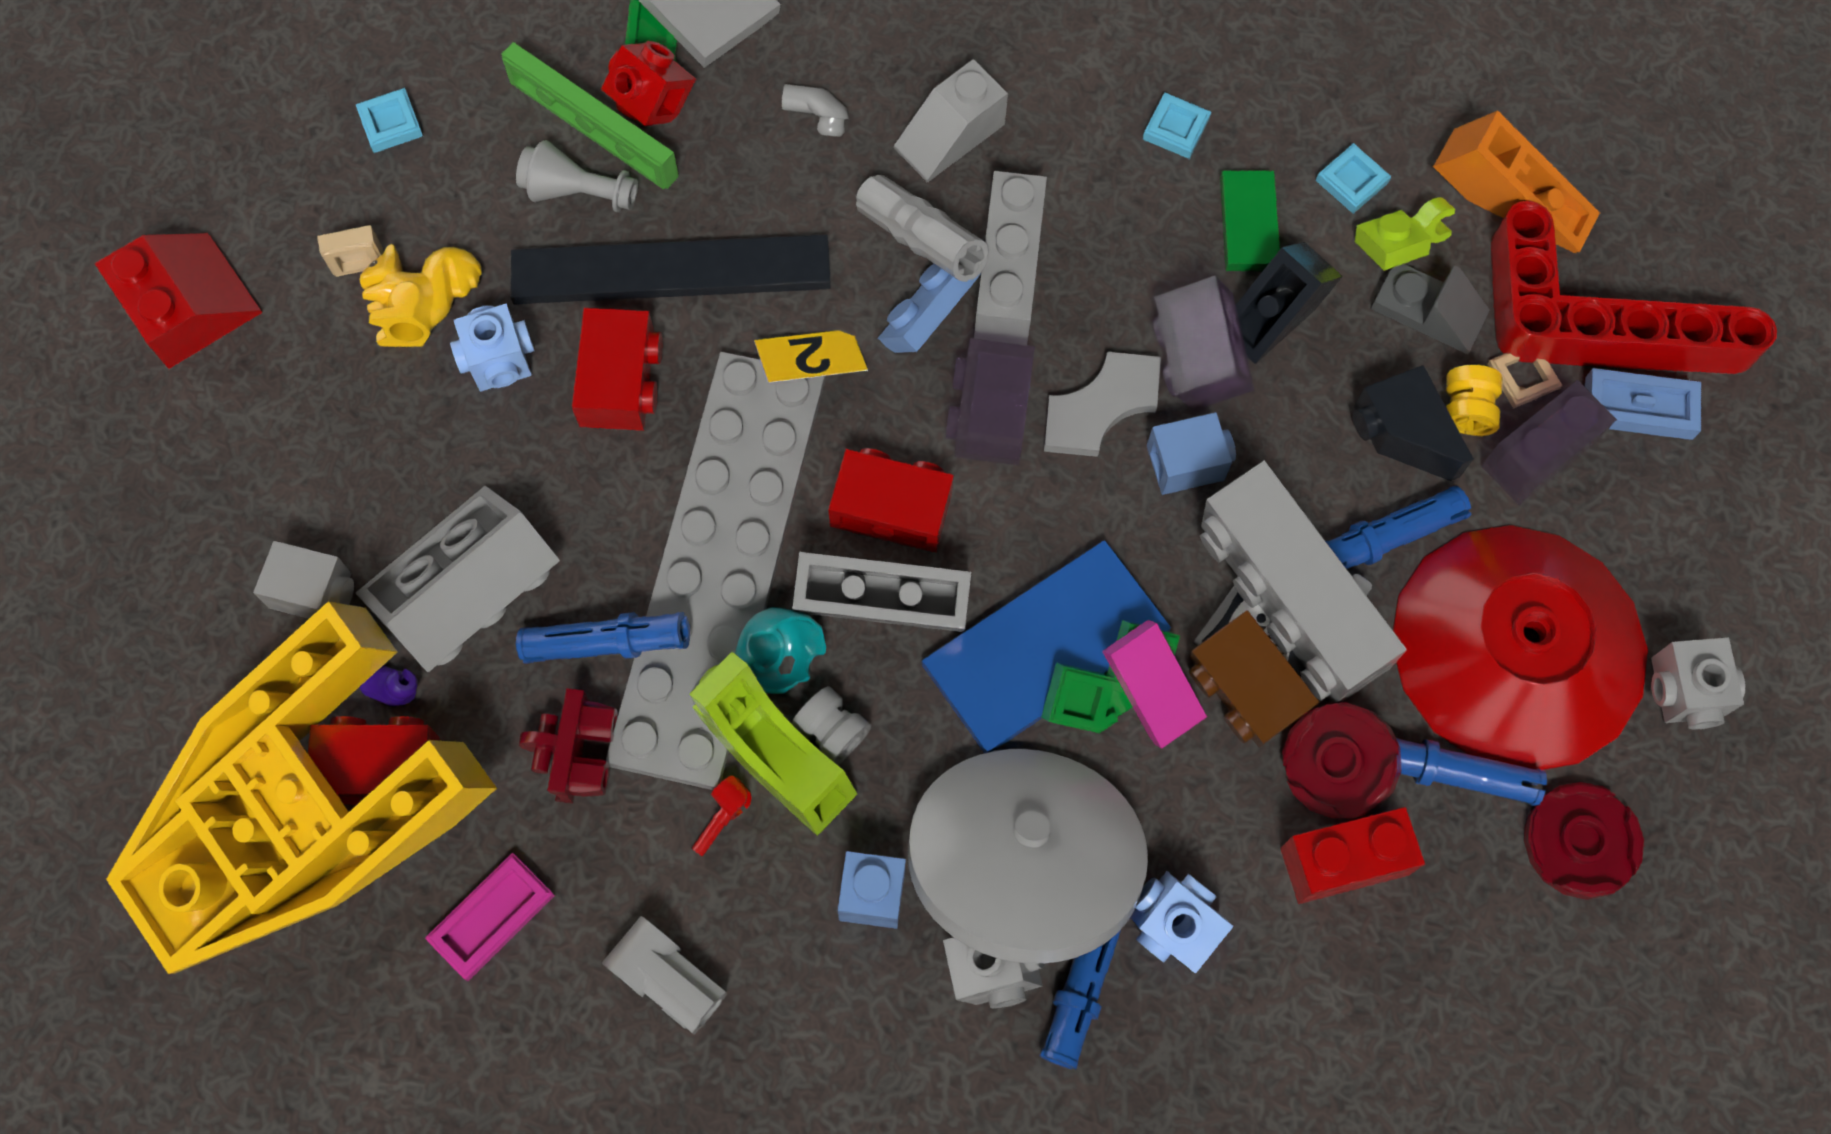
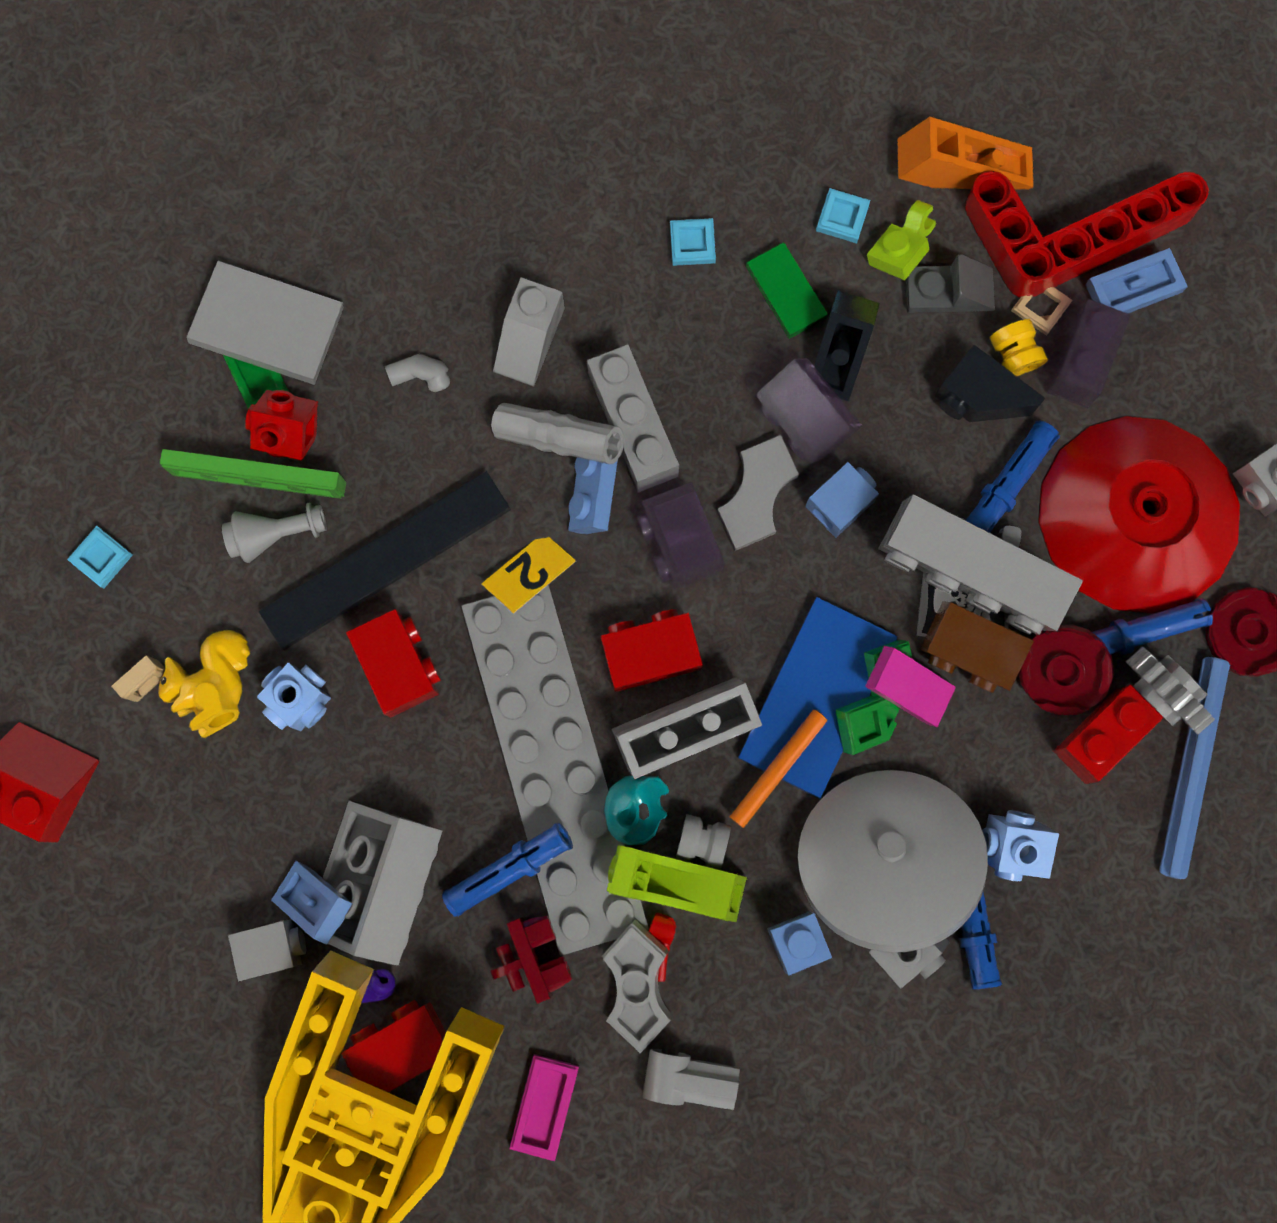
camera: 25 degrees left, 10 degrees up
(380, 558) = (311, 902): none -> medium blue plate
(657, 863) = (635, 965): none -> light grey tile
(958, 692) = (778, 768): none -> orange bar
(1434, 954) = (1194, 774): none -> medium blue axle
(1449, 840) = (1170, 690): none -> light grey gear

